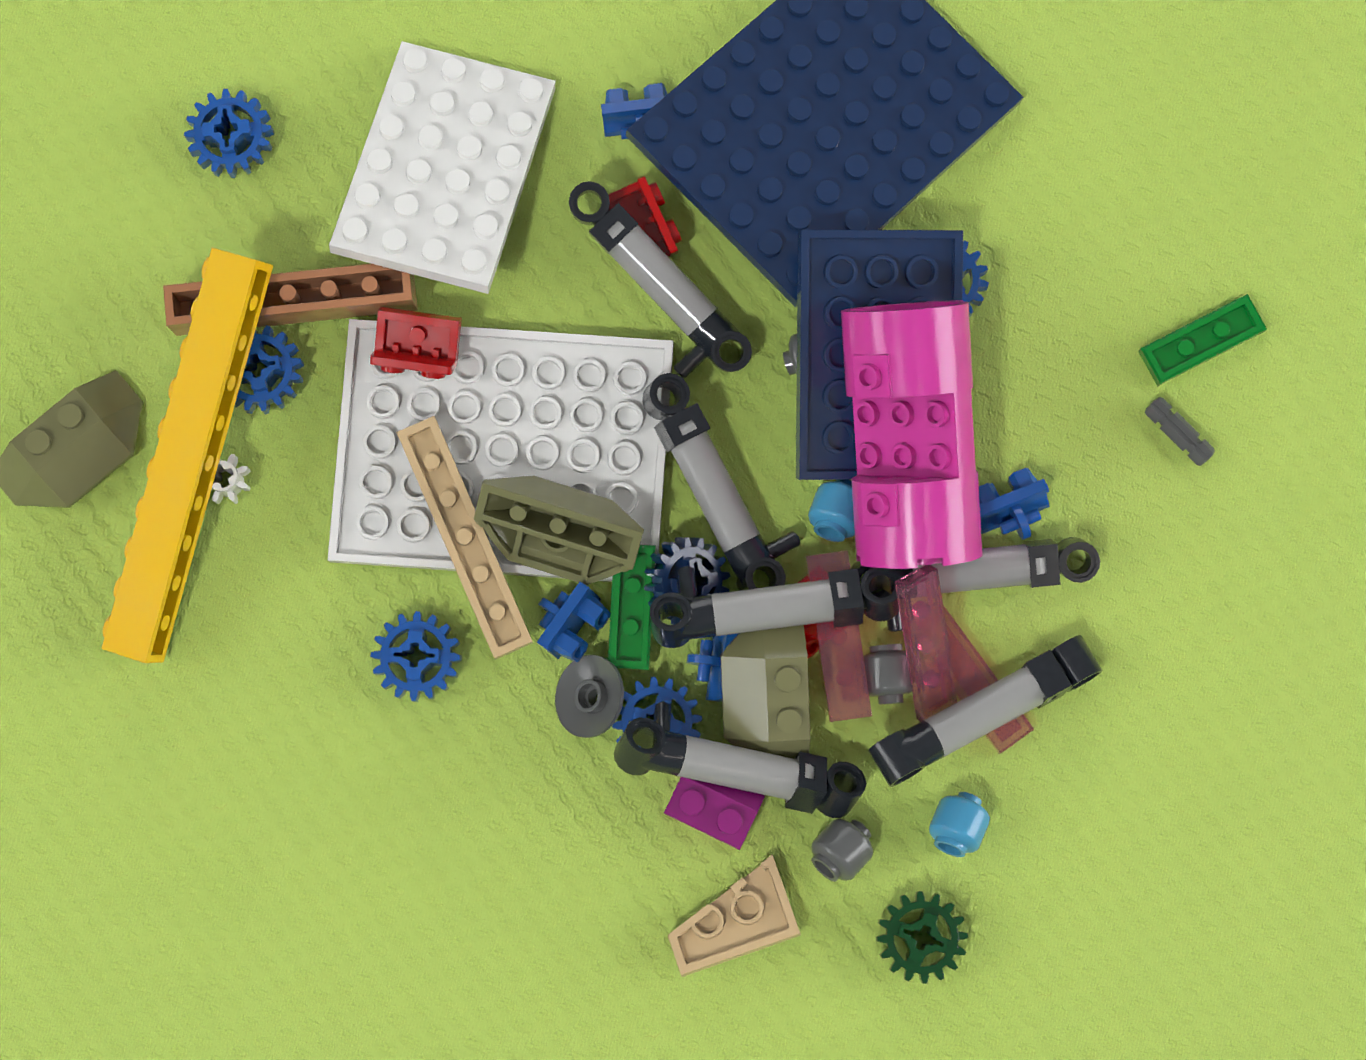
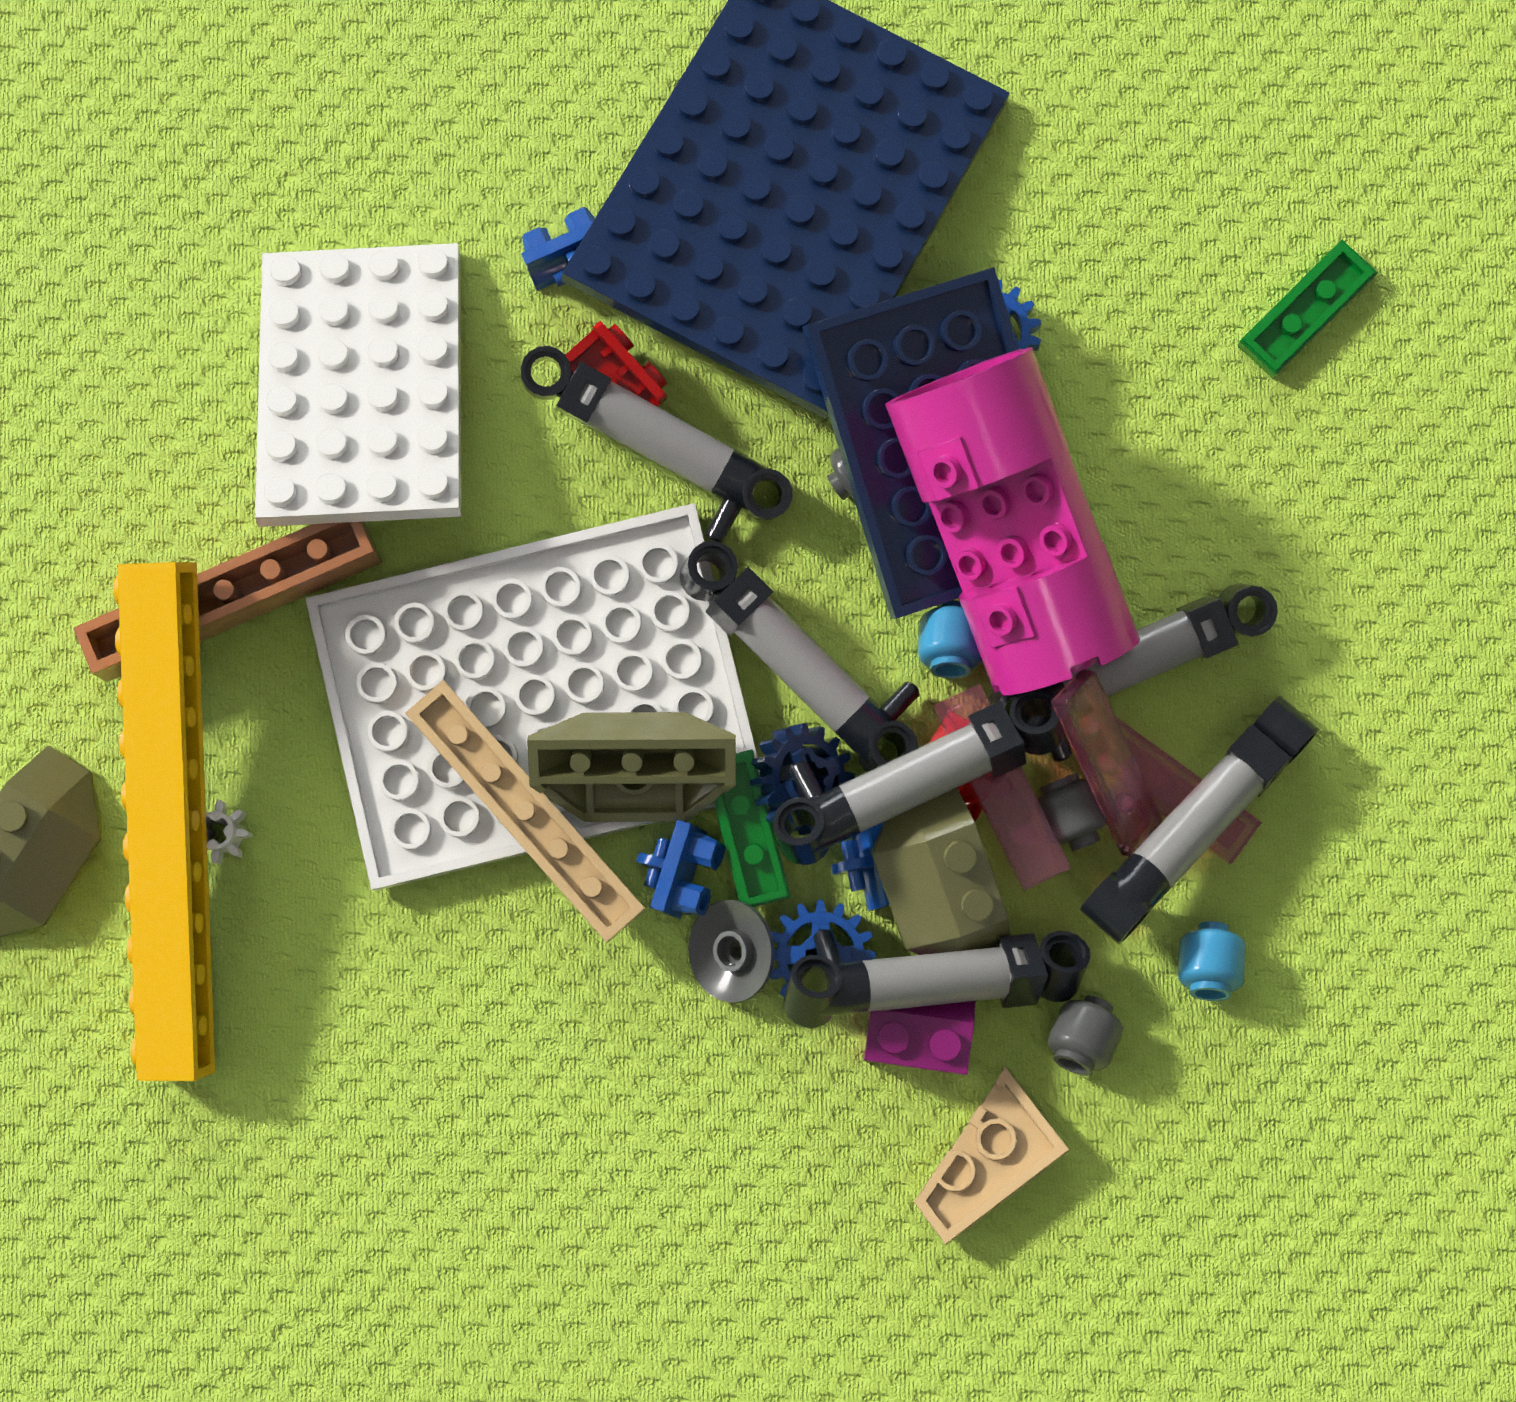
camera: 15 degrees left, 0 degrees up
(245, 133) = (74, 428): blue gear -> none
(275, 368) = (237, 683): blue gear -> none
(416, 342) = (394, 600): red bracket -> none
(416, 675) = (505, 947): blue gear -> none
(915, 956) = (1211, 1133): dark green gear -> none
(1014, 509) = (1159, 571): blue hips -> none
(1179, 431) = (1316, 422): dark grey axle -> none

